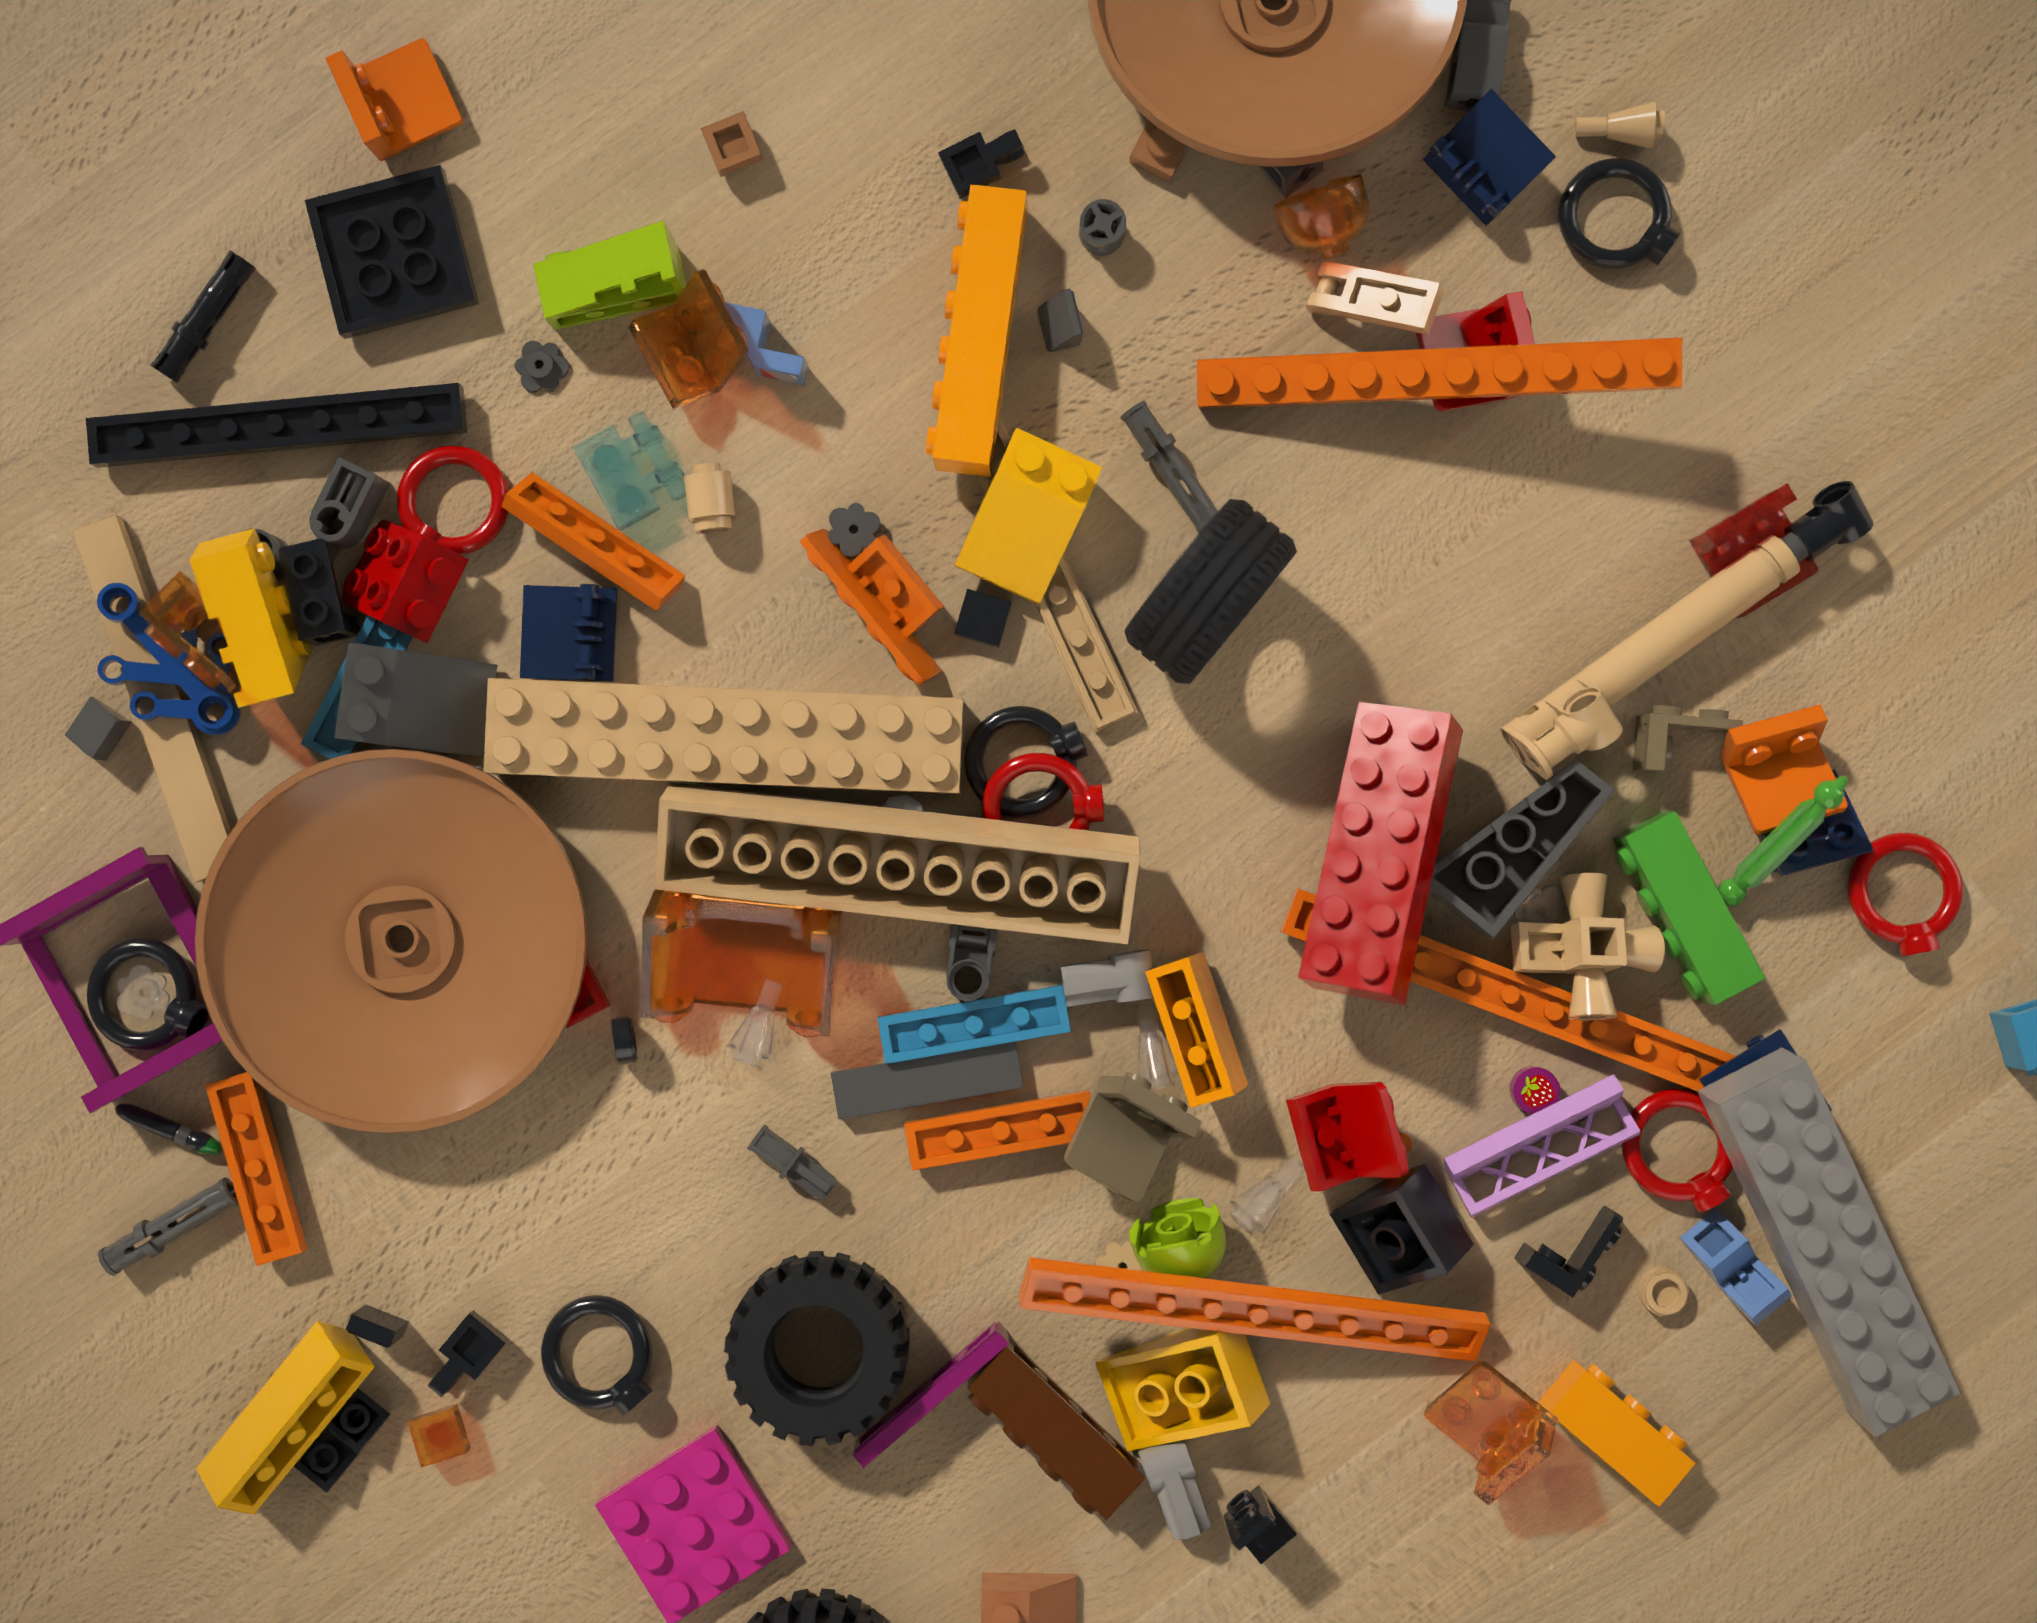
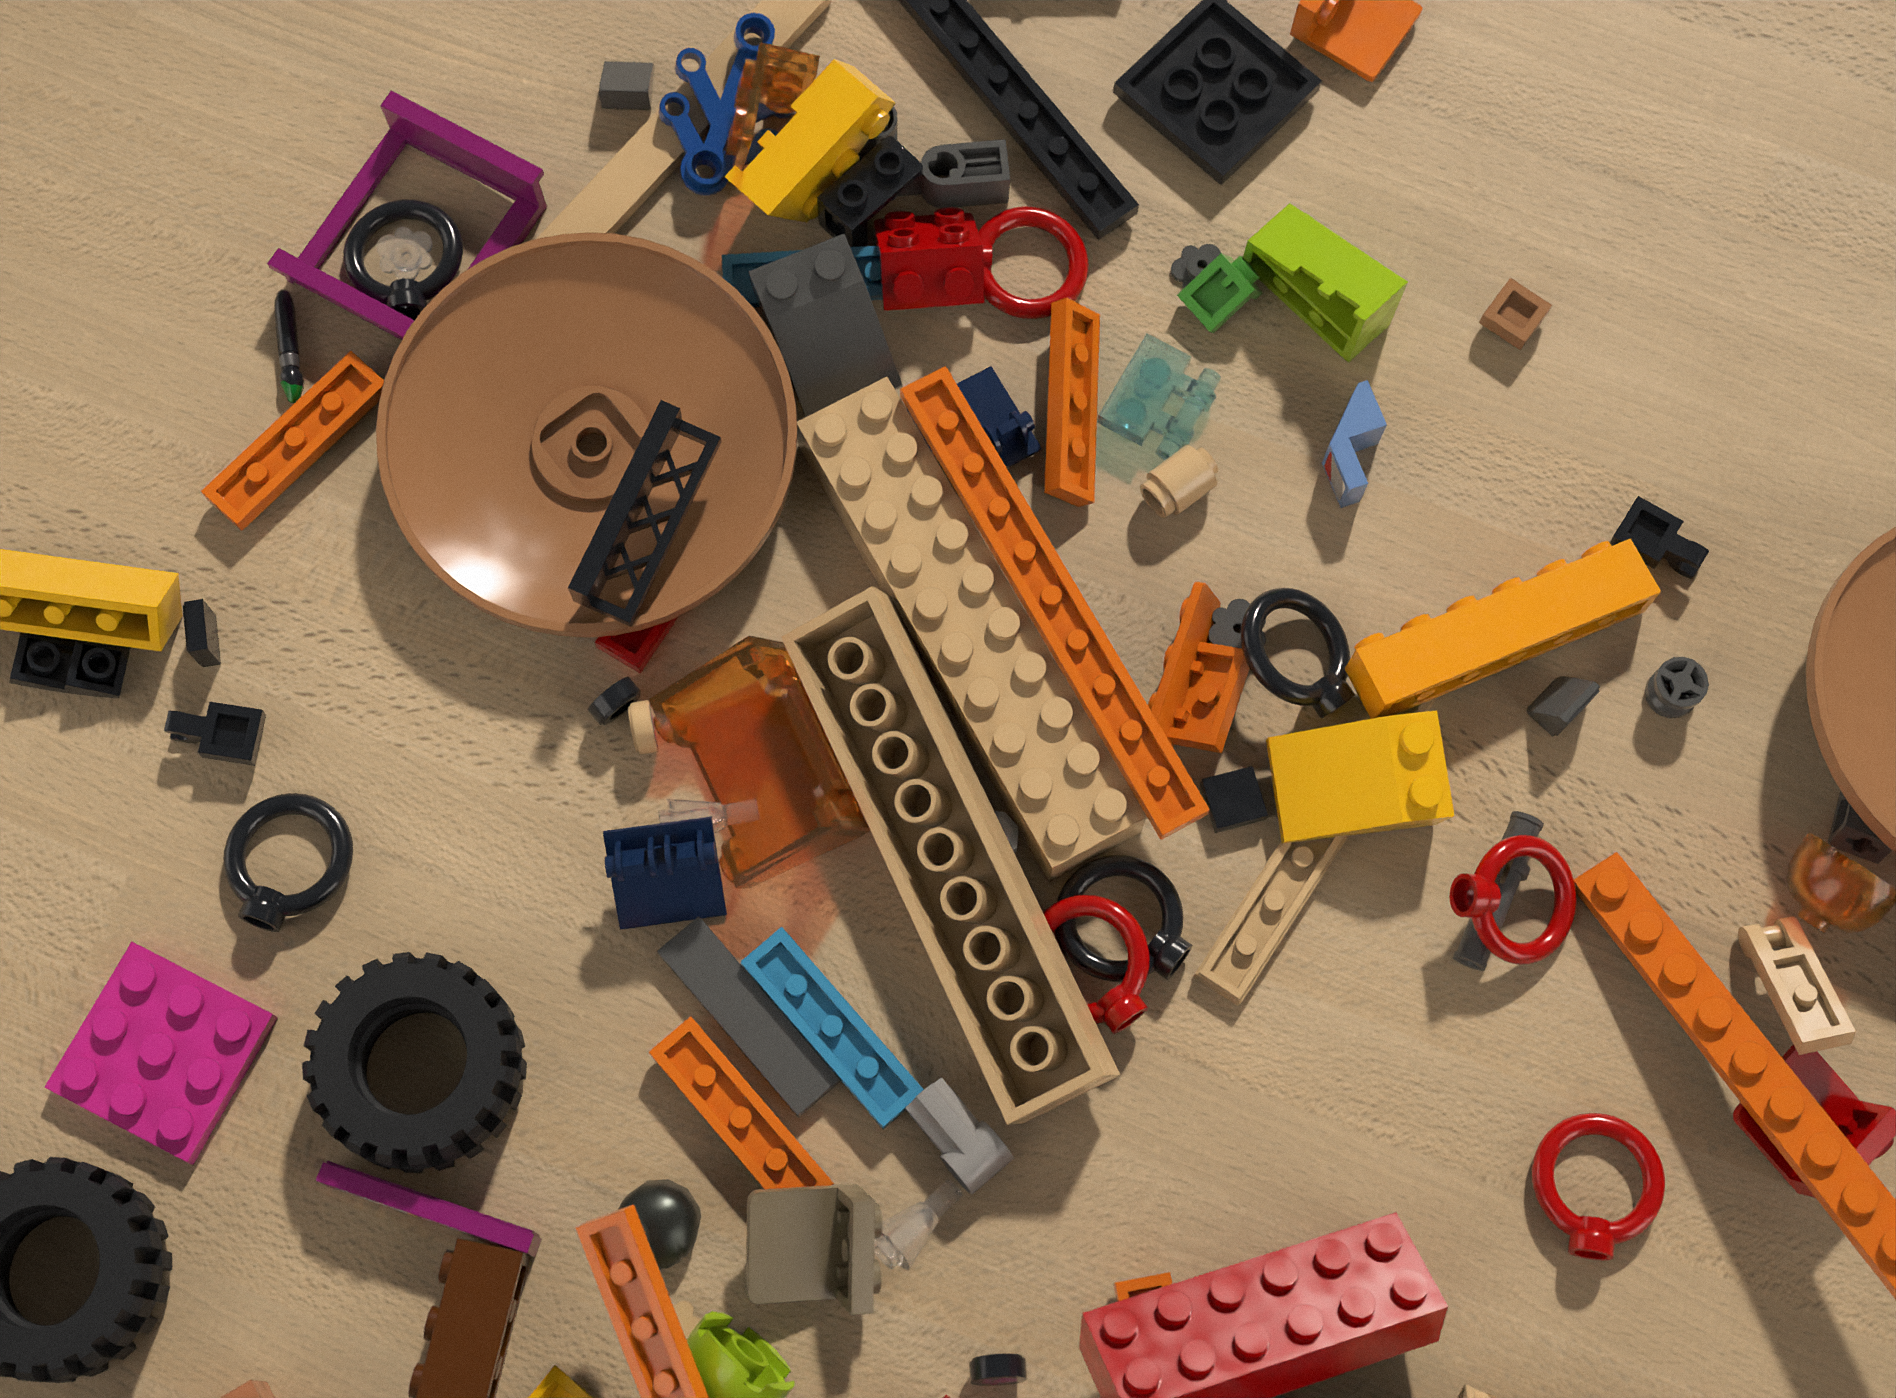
camera: 55 degrees right, 15 degrees down
(123, 1253) = (193, 394): dark grey pin -> none
(439, 1435) = (123, 752): clear orange plate -> none
(478, 950) = (626, 506): none -> black fence
(571, 363) = (1221, 290): none -> bright green bracket
(658, 1032) = (643, 727): none -> tan tile
(692, 343) = (1309, 381): clear orange bracket -> none
(748, 663) = (1054, 604): none -> orange plate
(783, 1081) = (664, 872): none -> dark blue hinge
(792, 1163) = (586, 932): dark grey axle -> none
(945, 493) = (1326, 693): none -> black piece
(973, 952) = (902, 981): dark grey piece -> none
(1039, 1230) = (668, 1219): none -> pearl dark grey hair
(1157, 152) = (1783, 699): medium nougat plate -> none
(1172, 488) = (1479, 897): none -> red piece
(1197, 1029) = (963, 1252): light orange brick -> none
(1209, 590) = (1407, 985): black tyre -> none
(1290, 1052) = (998, 1369): none -> black tile
(1453, 570) = (1588, 1235): none -> red piece

